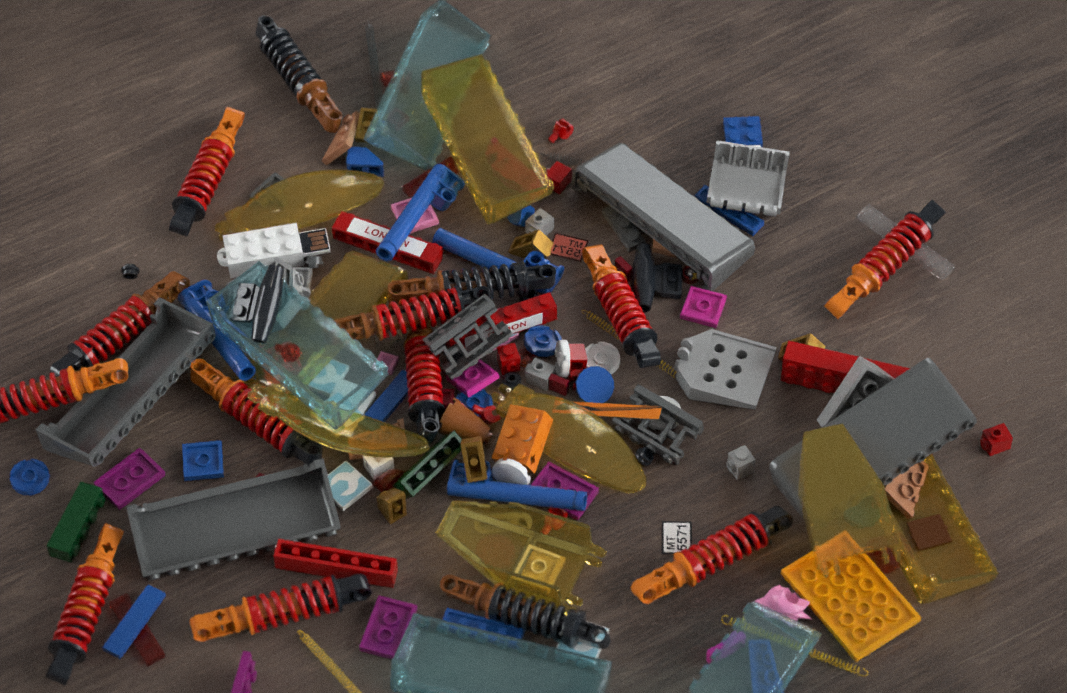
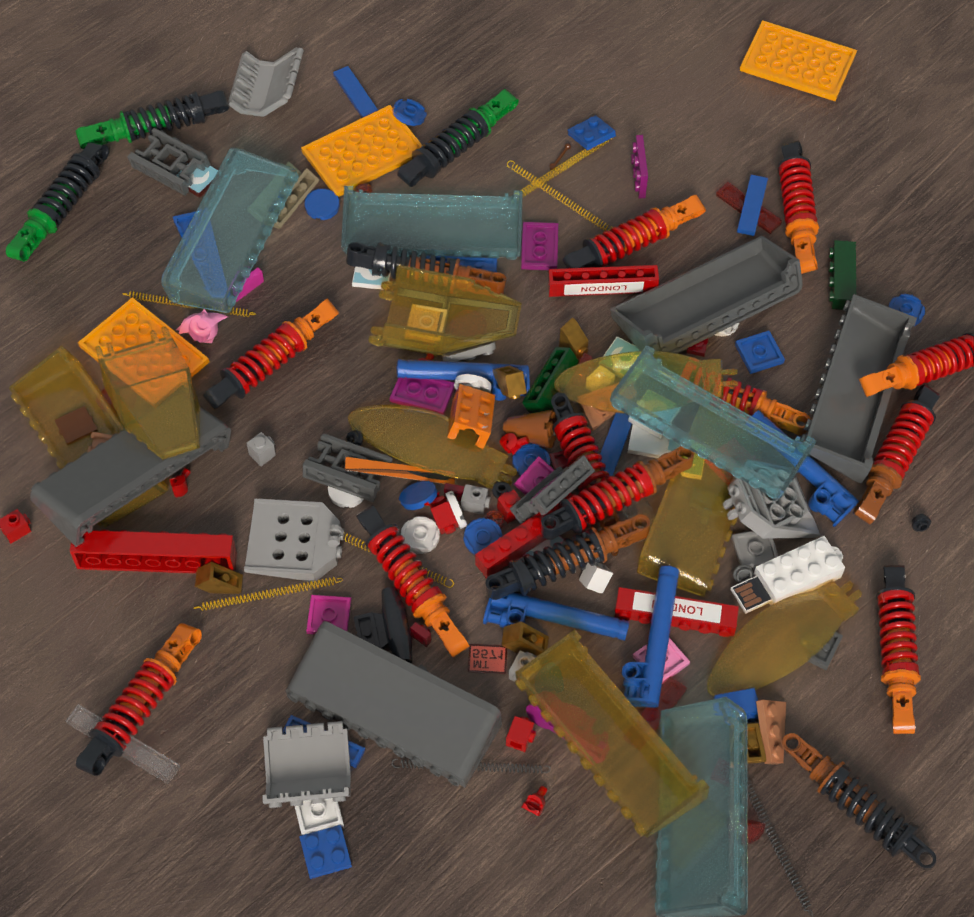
camera: 165 degrees right, 5 degrees up
(130, 478) = (816, 323): magenta plate -> none
(260, 303) = (762, 451): black plate -> none
(289, 351) = (715, 421): clear red plate -> none
(676, 536) = (309, 378): white sticker -> none
(764, 335) = (268, 593): none -> yellow piece
(858, 384) = (156, 513): light grey slope -> none

